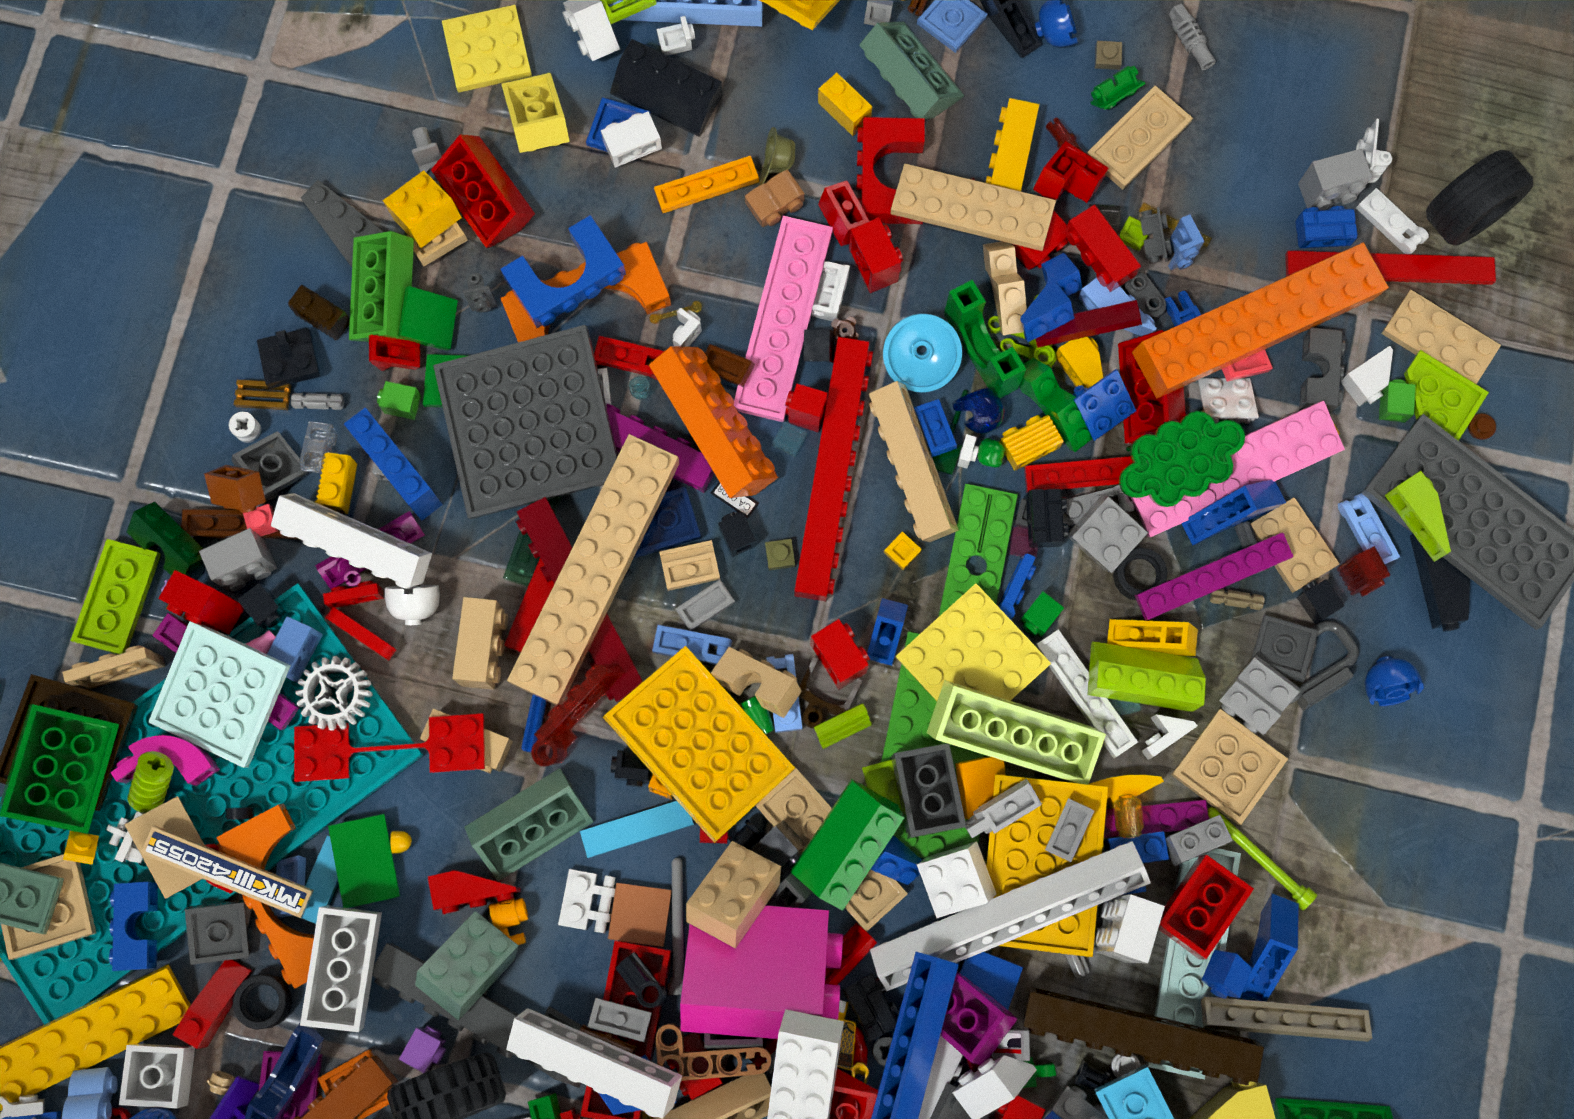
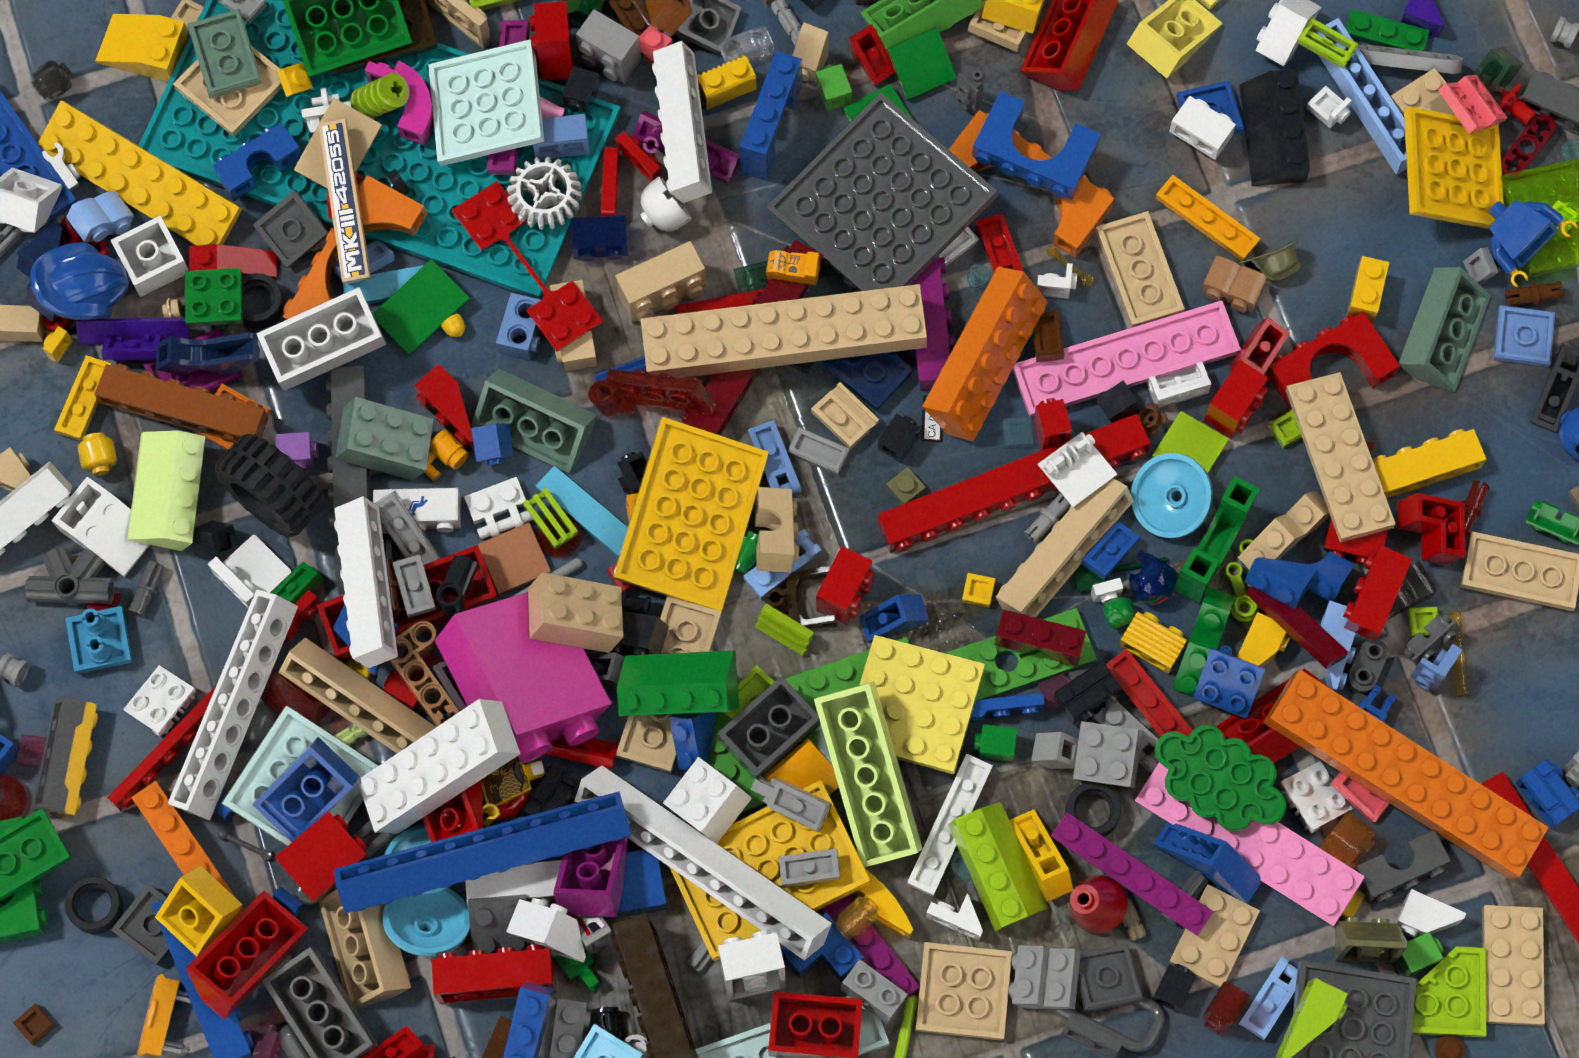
camera: 60 degrees right, 5 degrees down
(235, 1041) = (213, 298): none -> green plate
(357, 396) = (812, 49): none -> tan slope
(403, 671) = (599, 237): none -> clear blue brick
(434, 789) = (515, 326): none -> medium blue brick
(528, 872) = (492, 443): none -> blue brick
(541, 526) = (793, 267): none -> light orange leg
(545, 972) = (430, 507): none -> white brick
(561, 995) = (405, 529): none -> light grey tile
(627, 851) = (537, 499): none -> lime tile
(652, 873) = (565, 549): none -> clear red gear
(715, 261) = (1139, 269): none -> tan plate
(857, 410) = (1077, 469): none -> white hinge
(877, 458) = (1047, 518): none -> light grey pin
(881, 312) = (1194, 440): none -> lime tile
(916, 234) = (1285, 429): none -> lime tile
(979, 525) = (1024, 631): none -> dark red arch
(1077, 572) = (1055, 750): none -> light grey brick
(1219, 617) = (1098, 904): none -> red cone
(1277, 397) = (1349, 839): none -> clear orange brick
(1373, 429) = (1368, 941): none -> olive slope

